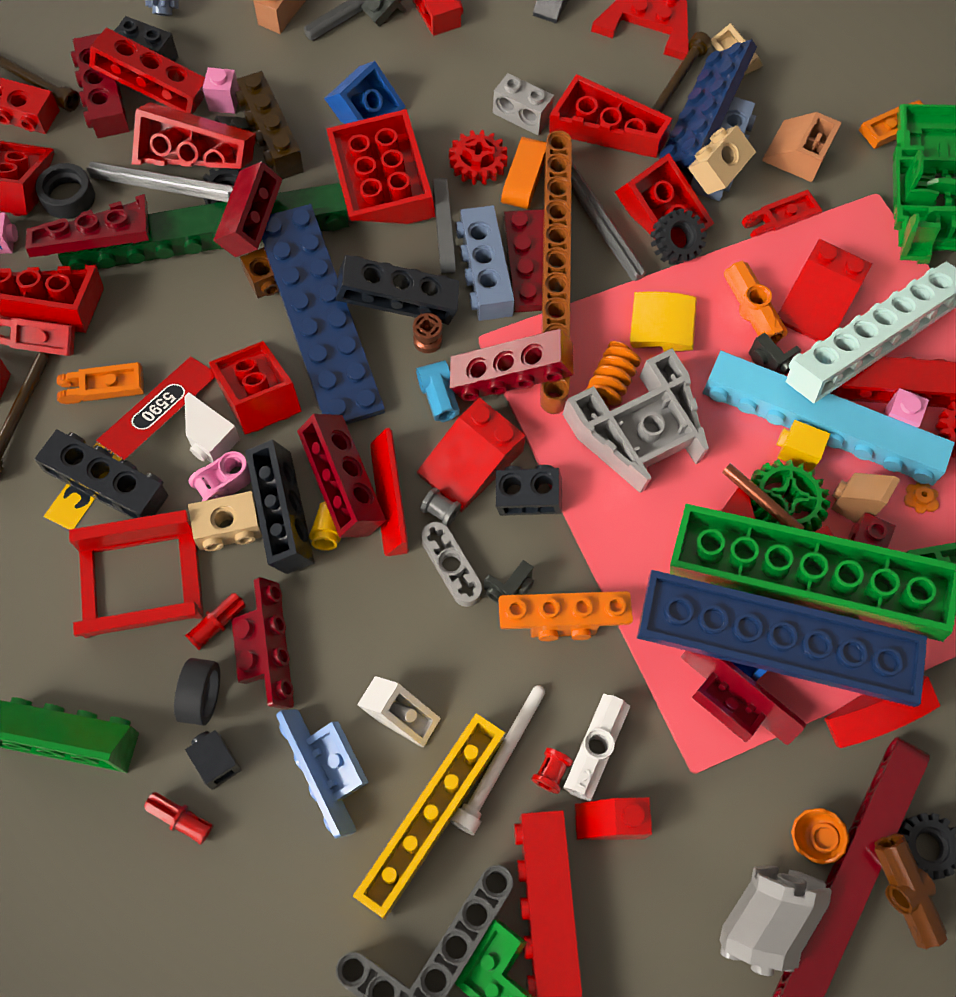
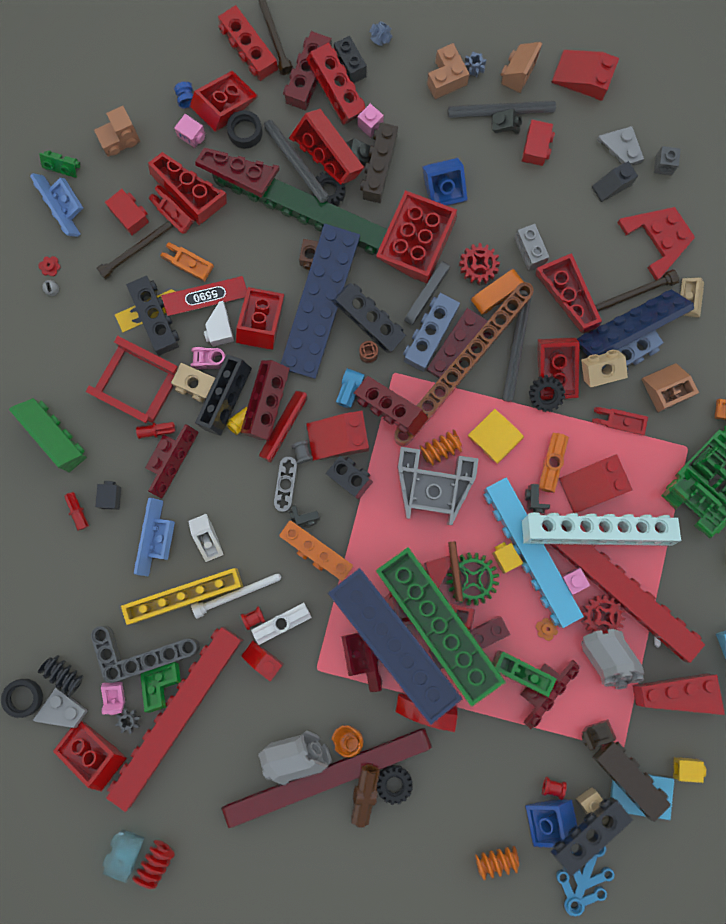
camera: 40 degrees right, 15 degrees up
(197, 691) = (121, 460): black tyre -> none
(248, 210) = (323, 216): dark red brick -> none
(863, 494) = (510, 606): medium nougat slope -> none

